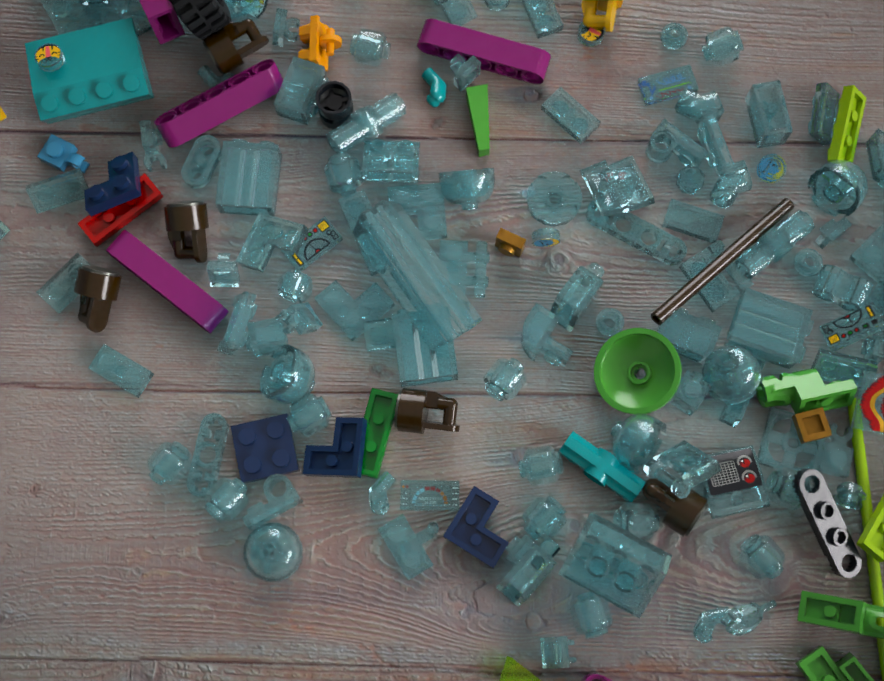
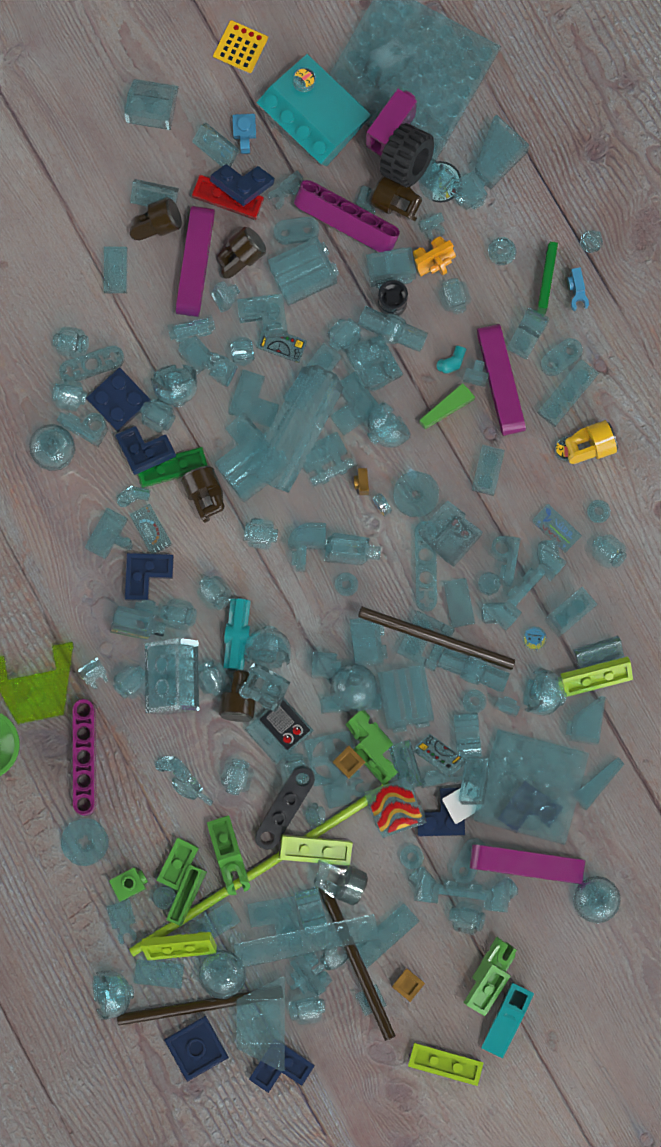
camera: 60 degrees right, 5 degrees up
(622, 359) = (309, 611): bright green dish -> none

